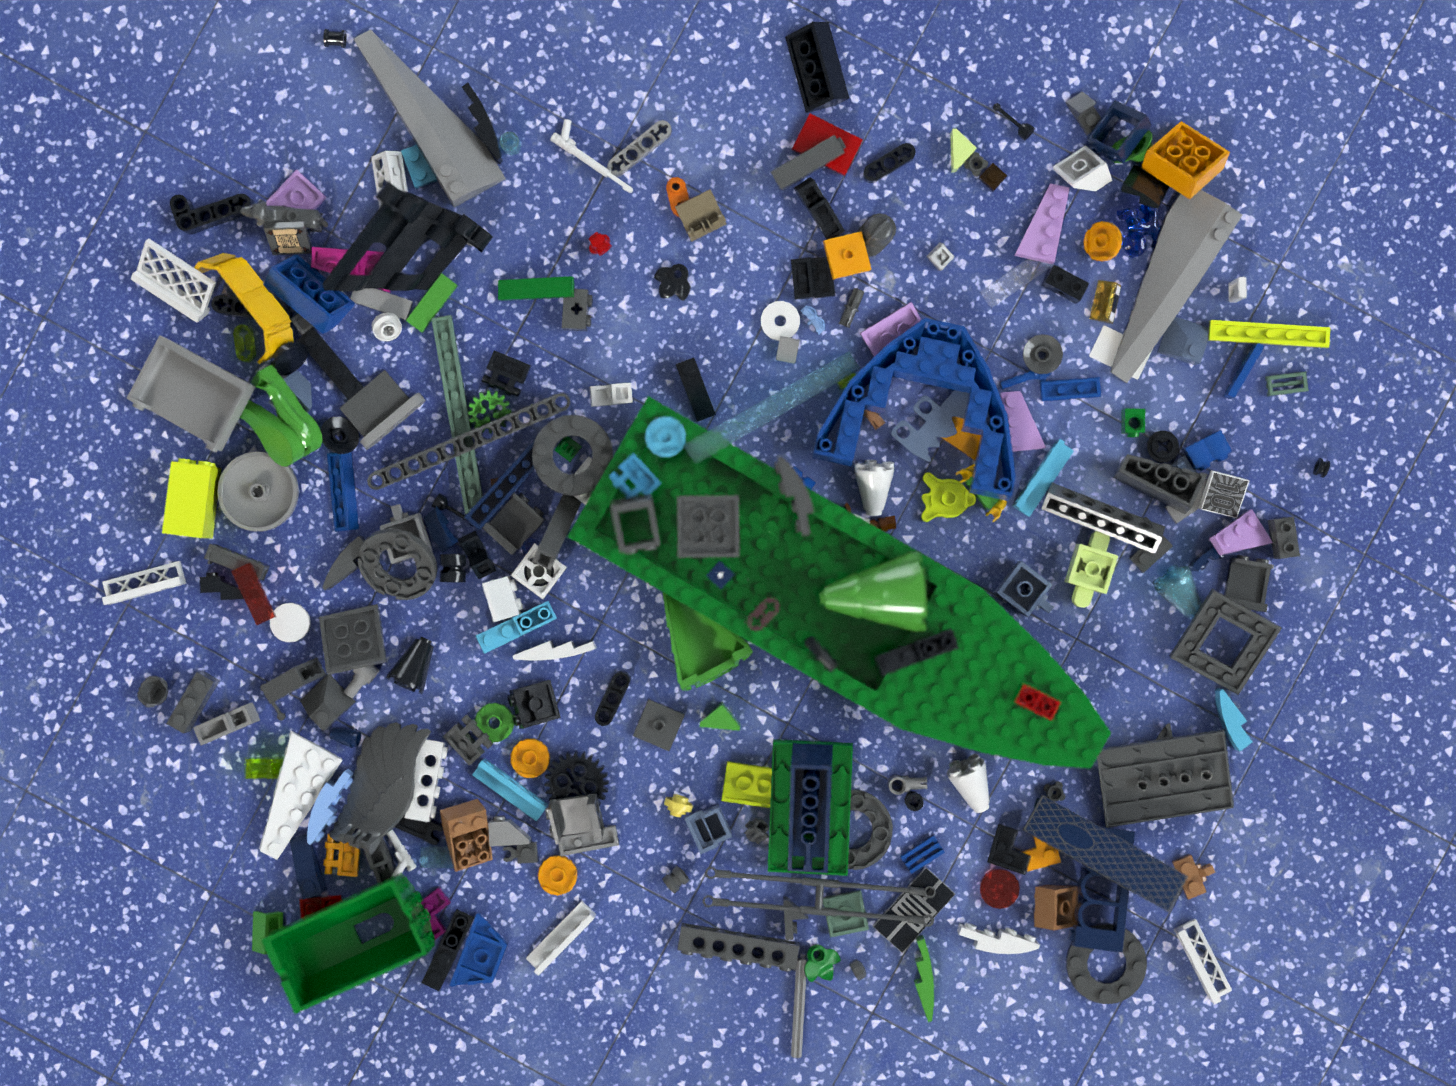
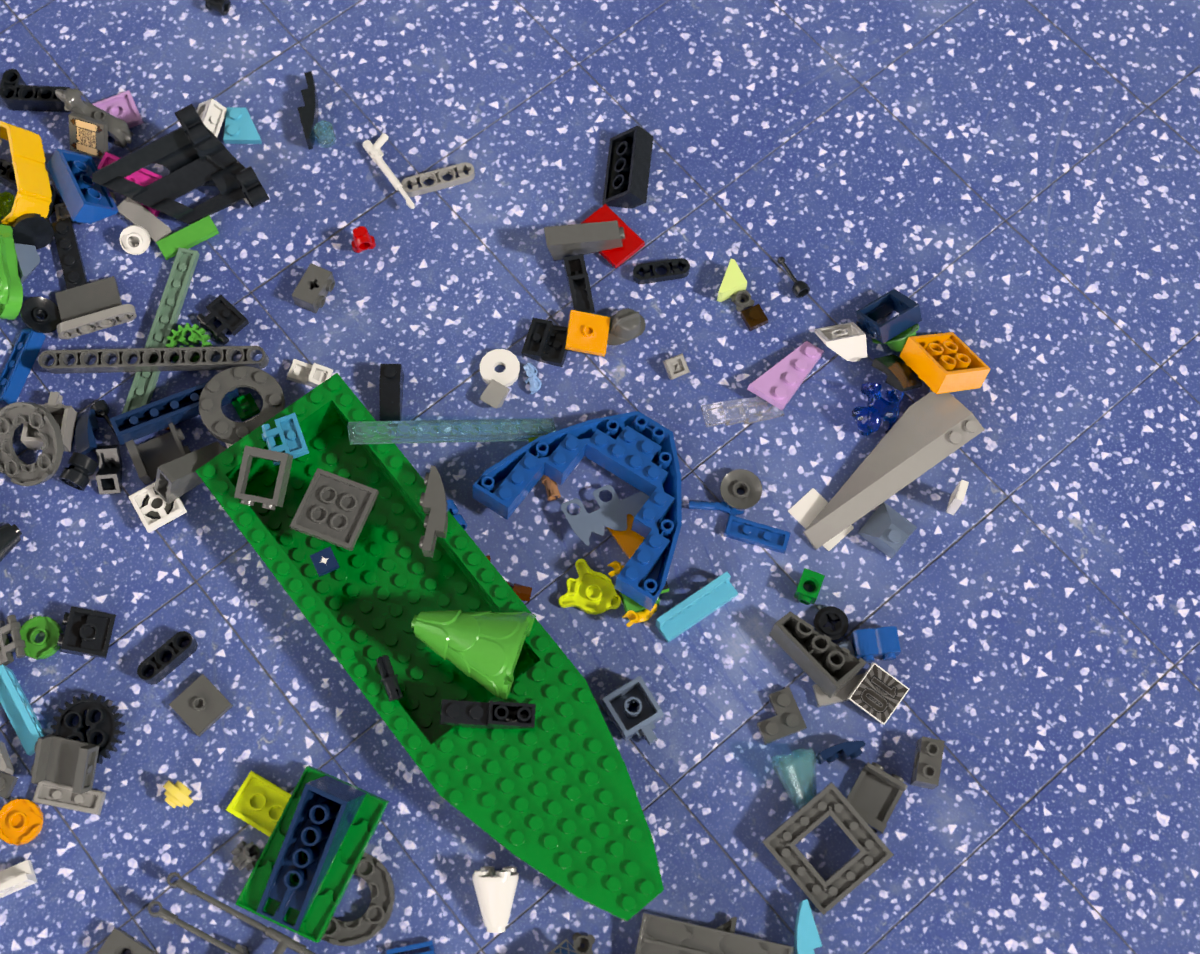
camera: 20 degrees right, 20 degrees down
(448, 146) = (269, 117): light grey wedge -> none
(502, 598) = (108, 516): white slope -> none
(516, 627) = (108, 552): medium azure slope -> none
(530, 758) = (55, 687): light orange tile -> none
(536, 288) = (286, 255): green tile -> none
(547, 651) = (130, 587): white slope -> none
(665, 436) = (333, 412): medium azure tile -> none
(671, 284) = (413, 300): black plate -> none
(675, 879) = (135, 875): dark grey wheel -> none
(676, 196) = (454, 229): orange plate -> none
(700, 215) = (466, 250): dark tan hinge -> none
(701, 646) = (277, 638): bright green cone -> none
(708, 828) = (197, 830): sand blue plate -> none
(720, 718) = (263, 716): bright green slope -> none
(759, 610) = (347, 611): beam -> none
(851, 307) = (572, 380): dark grey axle -> none
(874, 484) = (523, 548): white cone -> none
(890, 328) = (601, 408): lavender wing -> none
(907, 783) = (428, 870): light grey pin -> none
(908, 798) = (422, 886): black bush -> none
(1021, 424) = (692, 548): lavender wing -> none
(1037, 702) = (595, 821): red slope -> none
(1065, 284) = (787, 433): black brick -> none
(1084, 112) = (861, 290): dark grey slope -> none
(1091, 569) = (711, 715): yellowish green brick -> none
(1103, 241) = (838, 407): light orange tile -> none
(1103, 518) = (743, 666): dark grey brick -> none
(1105, 301) = (822, 466): clear yellow slope -> none
(1241, 534) = (882, 740): lavender wing -> none
(1243, 371) = (940, 579): blue tile -> none
(1269, 334) = (977, 554): neon yellow plate -> none
(1270, 386) = (995, 622): sand green tile -> none
(1321, 467) = (990, 706): black bush -> none

